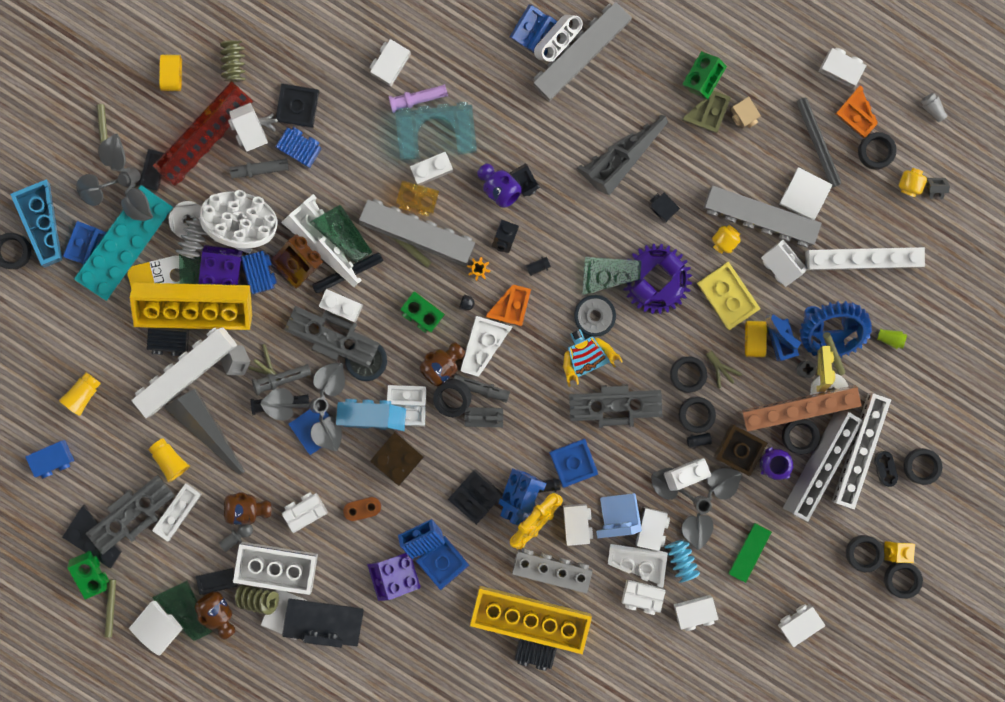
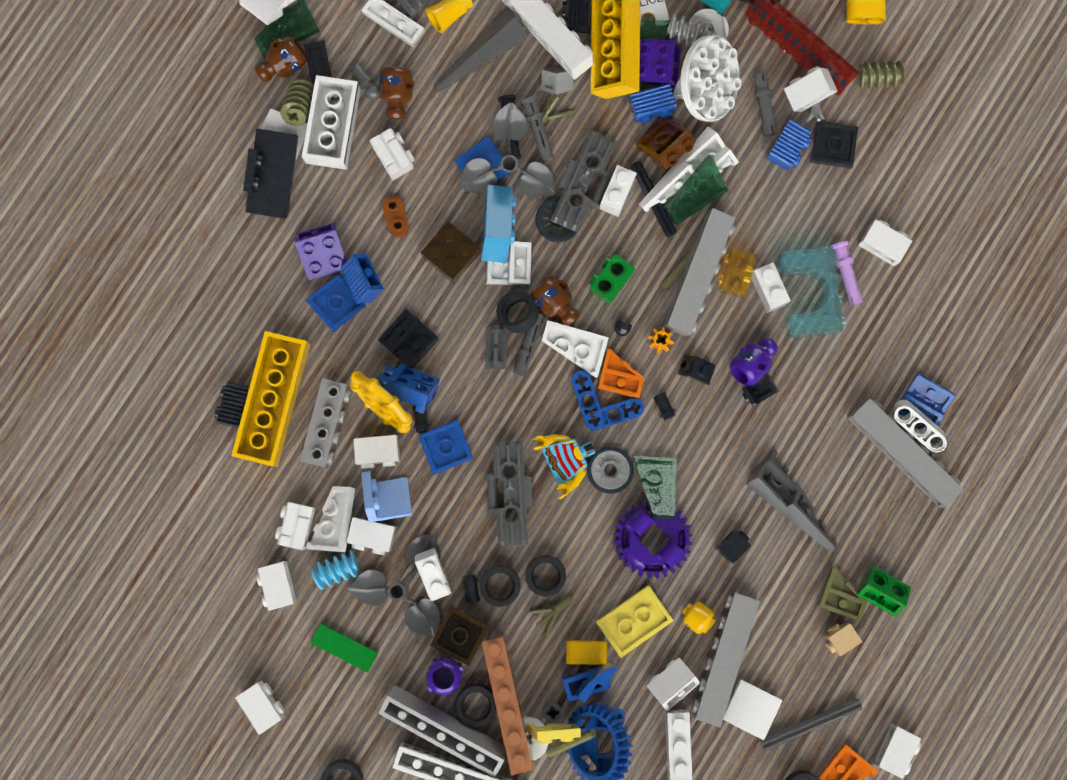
camera: 90 degrees right, 5 degrees down
(544, 321) = (602, 413): none -> blue beam

